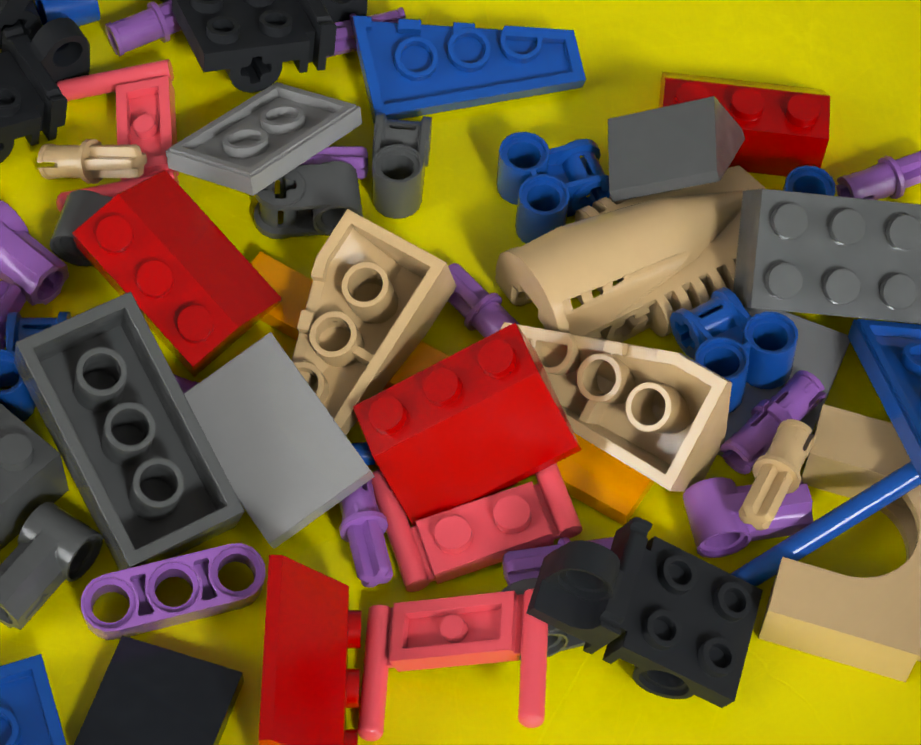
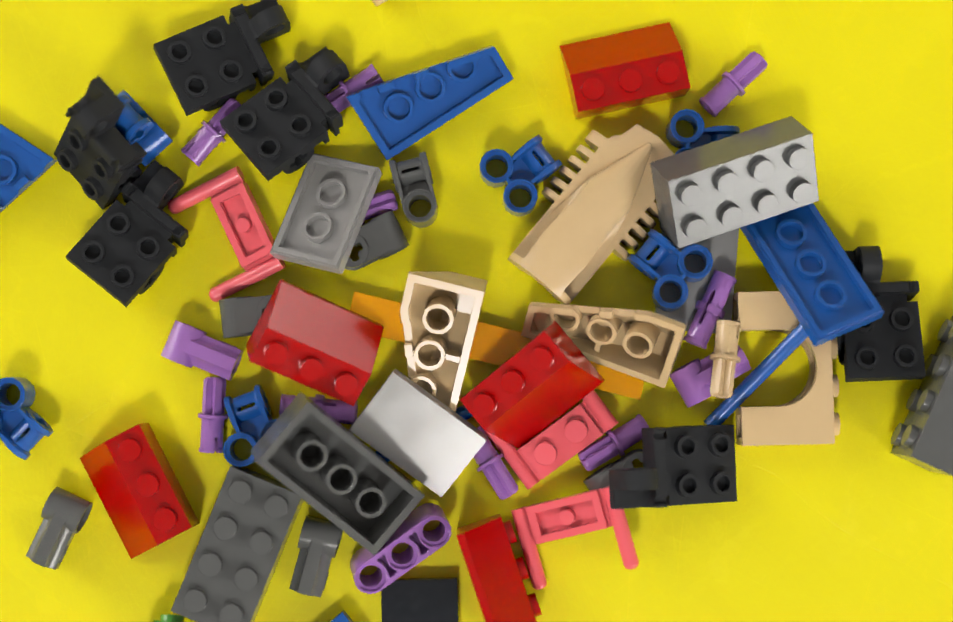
camera: 15 degrees left, 30 degrees up
(92, 161) = (221, 267): tan axle -> none
(476, 305) = (506, 284): medium lavender axle -> none
(671, 148) = (594, 143): dark grey slope -> none

